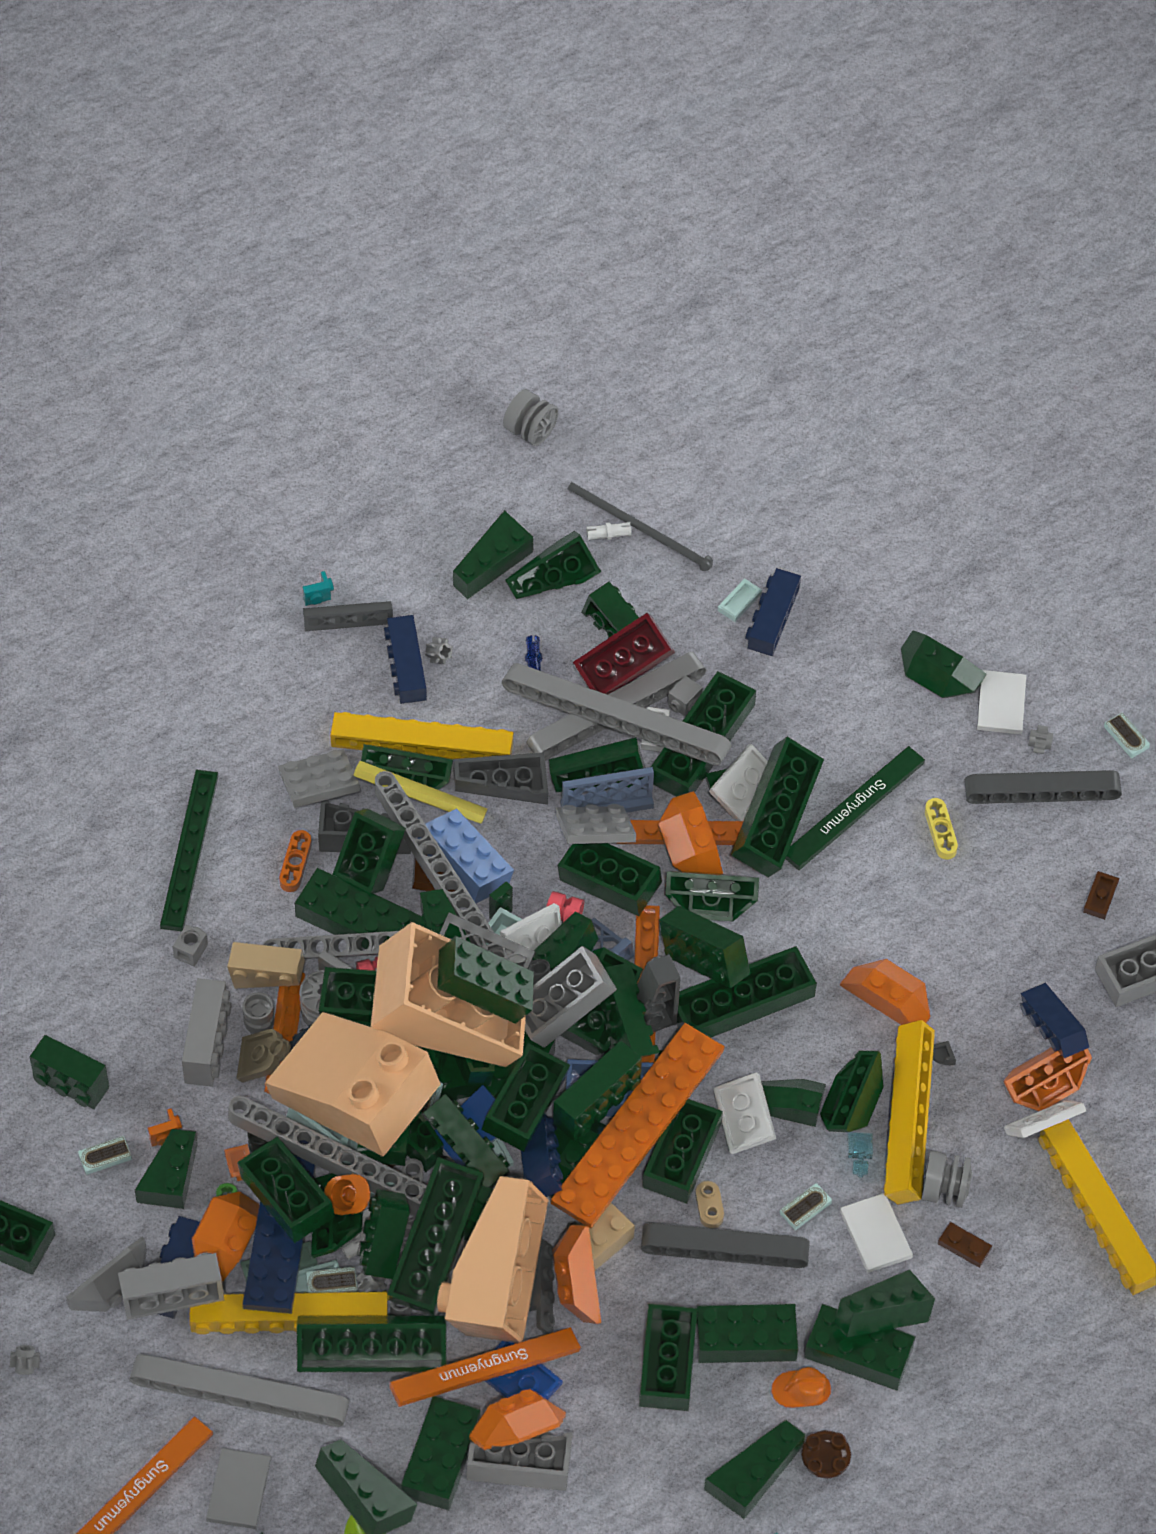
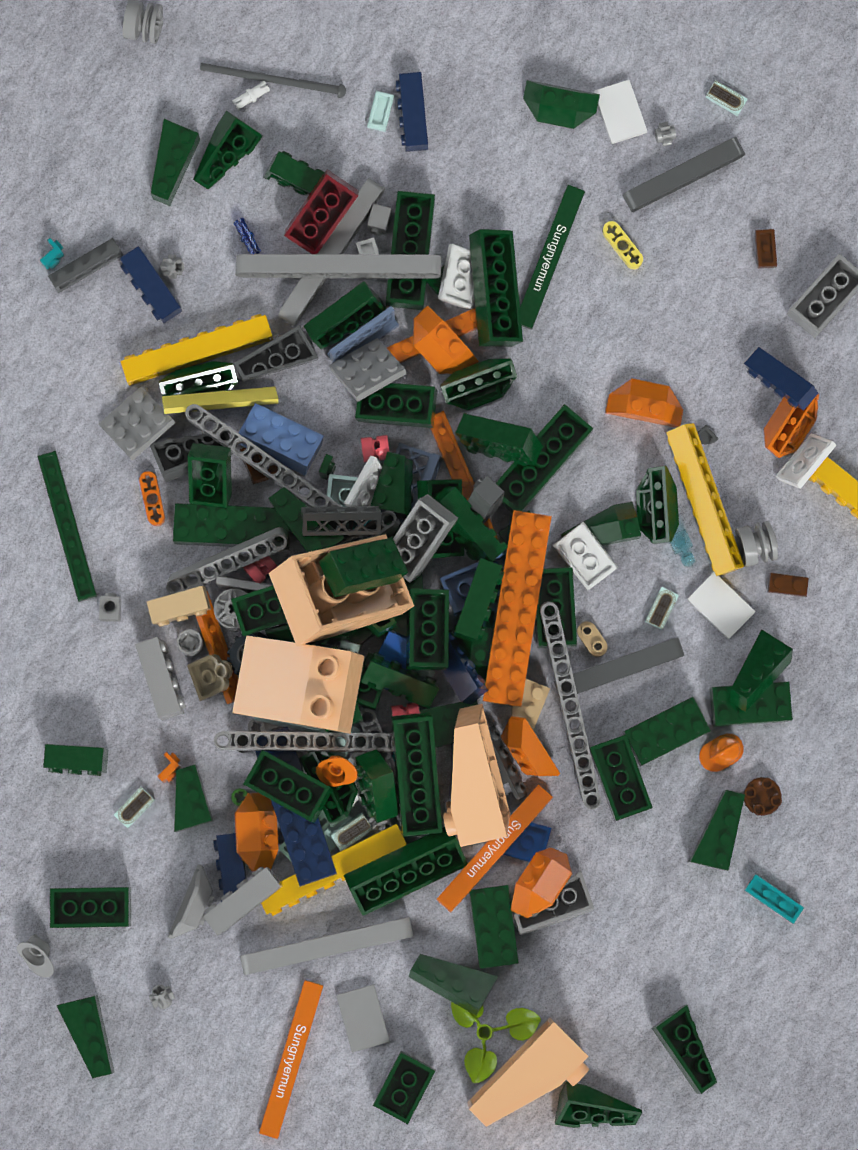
camera: 25 degrees left, 25 degrees up
(234, 1155) = (236, 768): orange bracket -> none
(644, 1261) = (575, 713): none -> light grey beam

